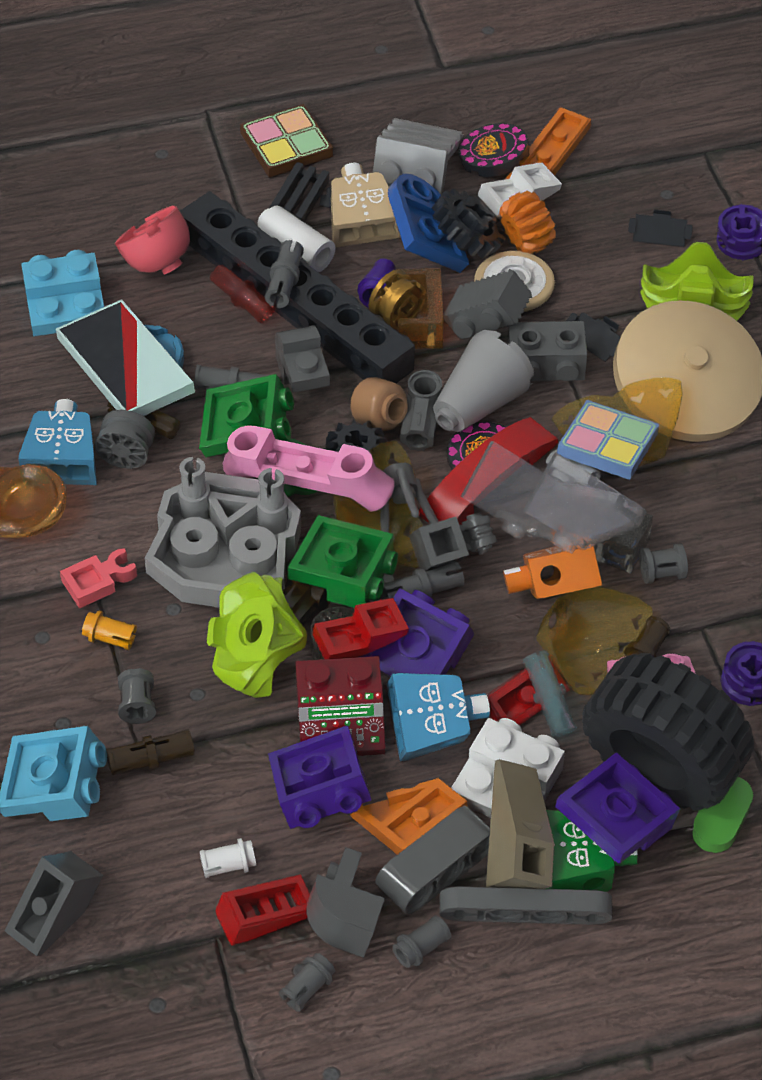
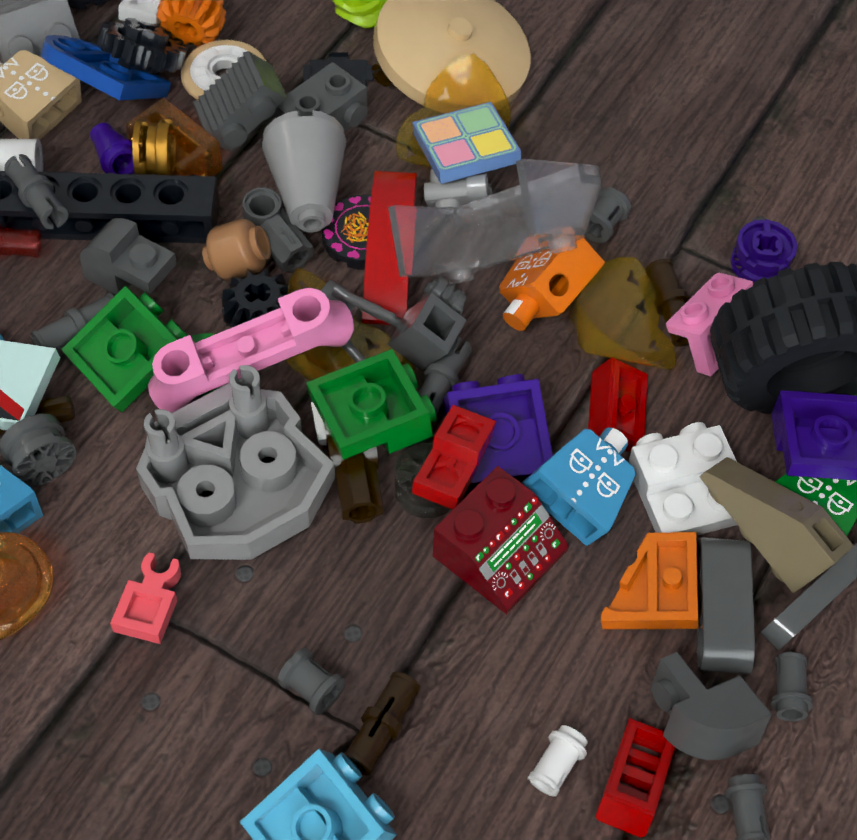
camera: 45 degrees left, 5 degrees up
(108, 630) = (215, 641): light orange pin -> none
(253, 633) = (347, 546): lime piece -> none
(319, 778) = (558, 616): dark purple plate -> none
(549, 694) = (650, 388): clear light blue pin -> none

